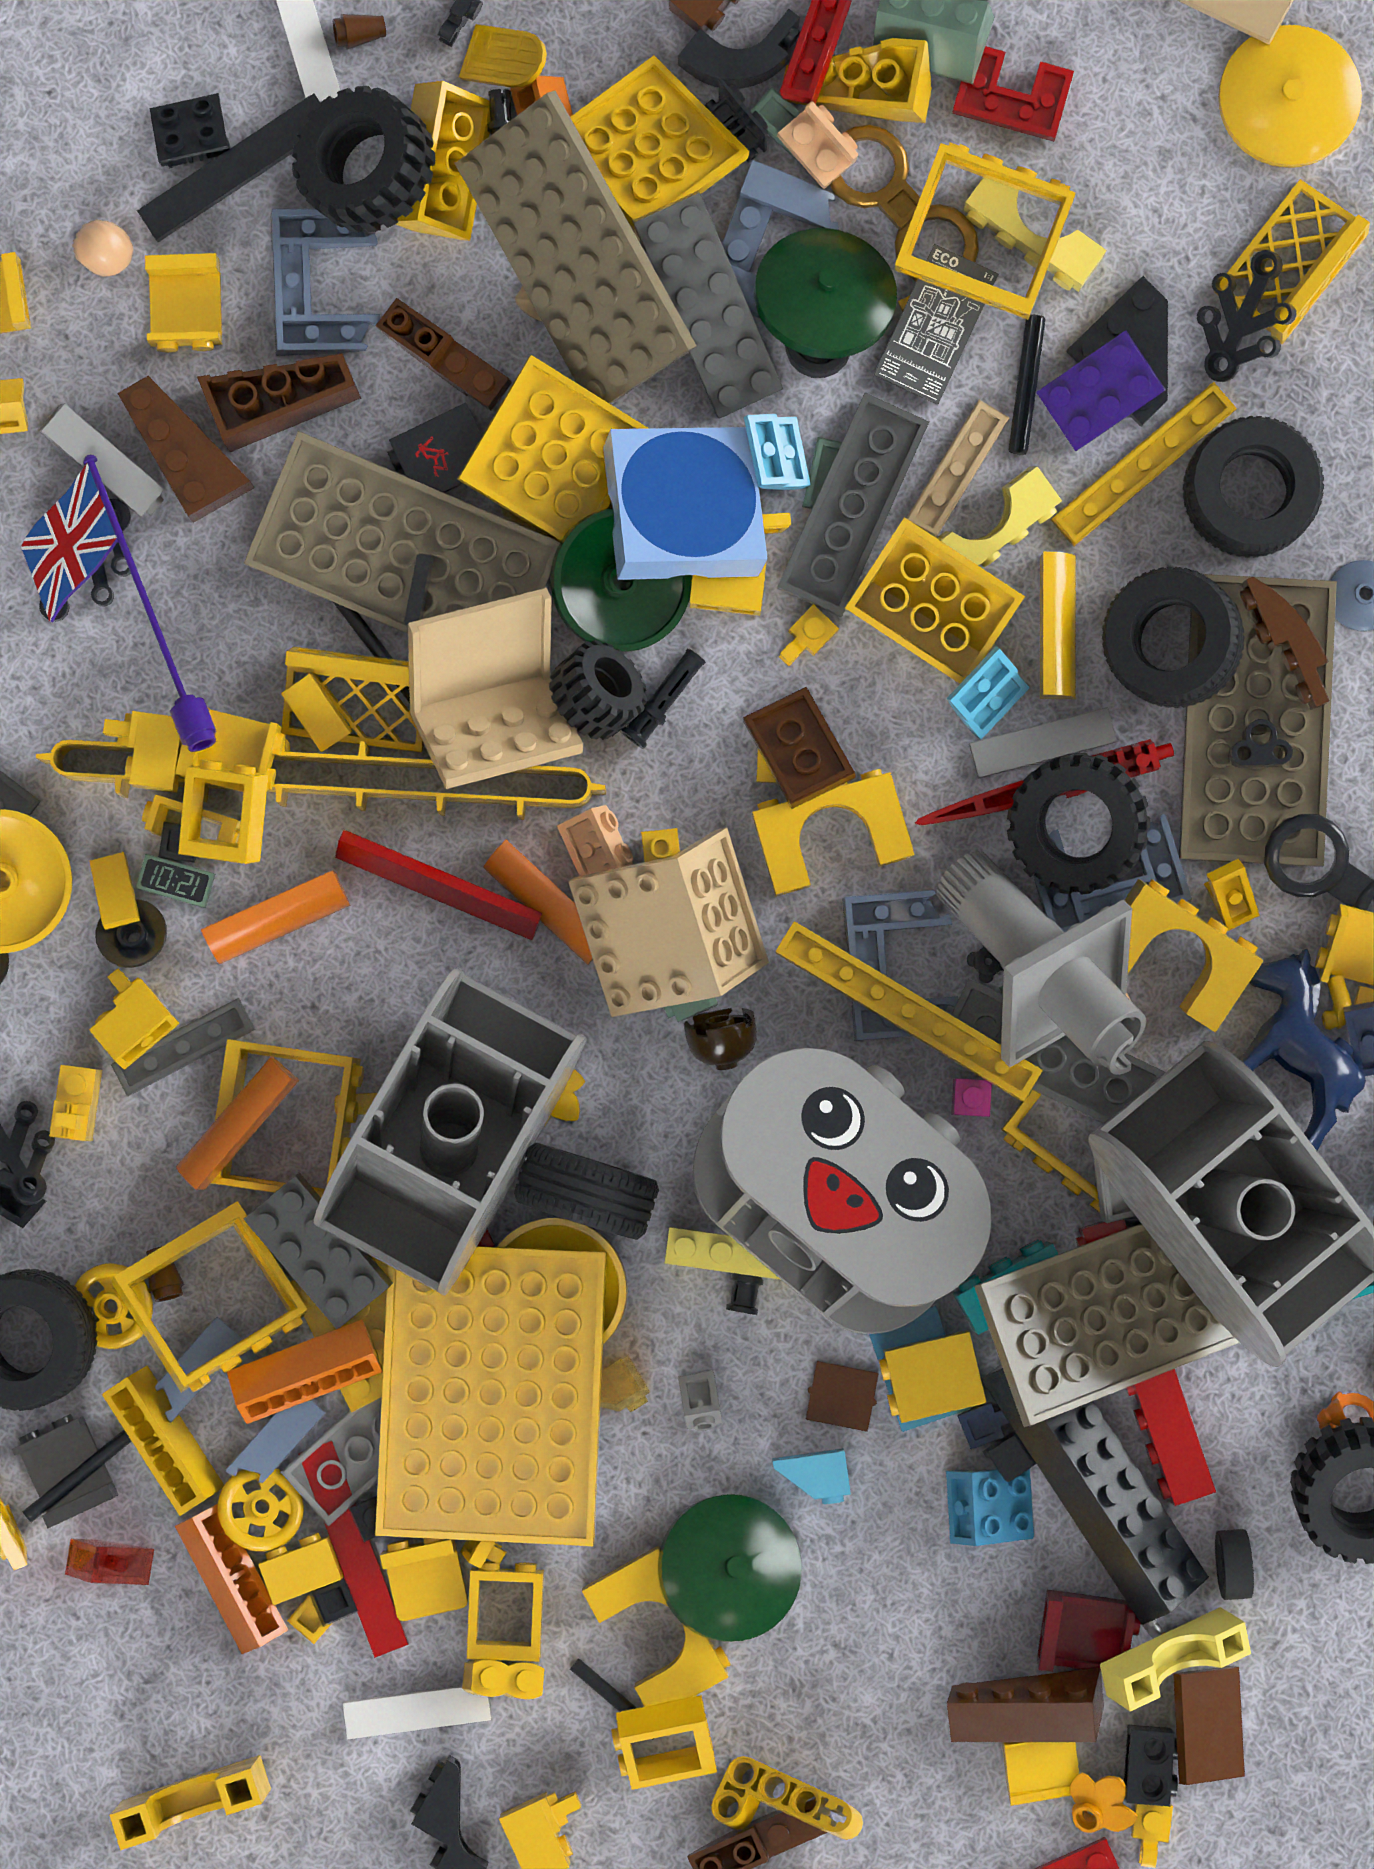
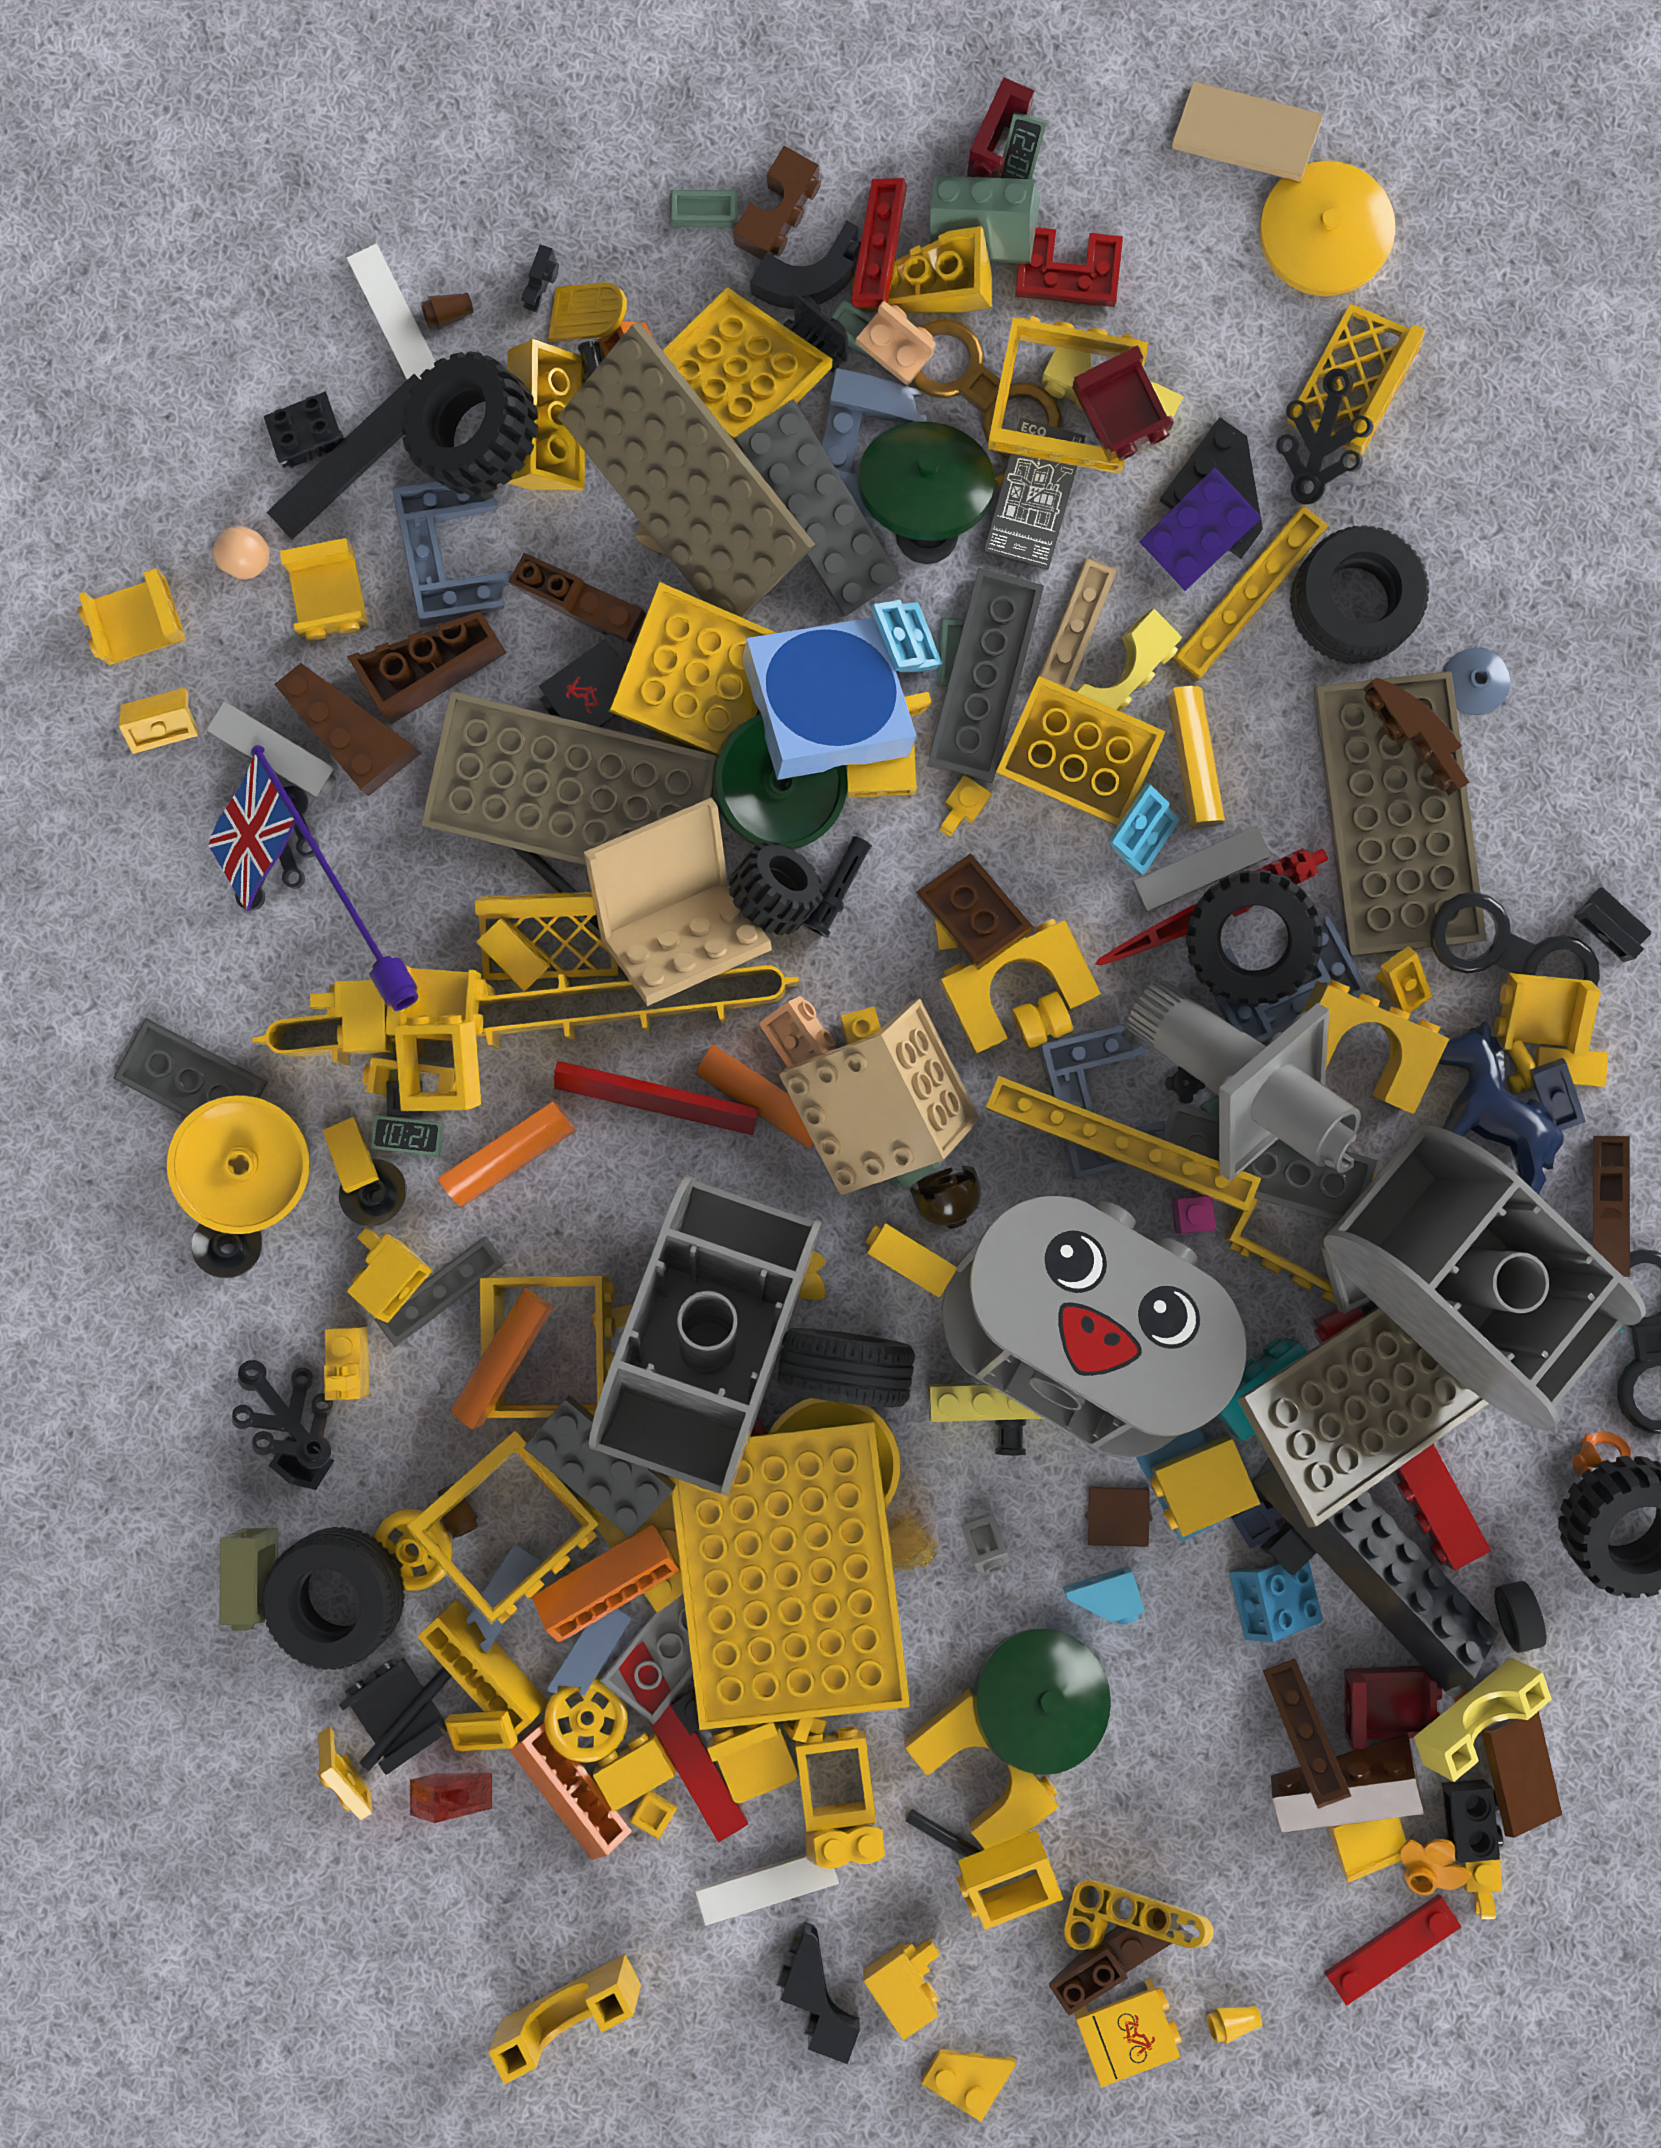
camera: 10 degrees left, 0 degrees up
(151, 1501) = (481, 1731): none -> yellow tile
(333, 1602) = (670, 1797): black tile -> none
(419, 587) = (590, 818): black tile -> none
(670, 1092) = (910, 1259): none -> yellow window
(850, 871) = (1045, 1019): none -> yellow wheel
(993, 1643) = (1306, 1733): none -> reddish brown plate
(1027, 384) = (1128, 537): black axle -> none
(1037, 254) = (1122, 405): none -> dark red panel
(1133, 610) = (1303, 701): black tyre -> none
(1260, 754) = (1409, 845): black piece -> none

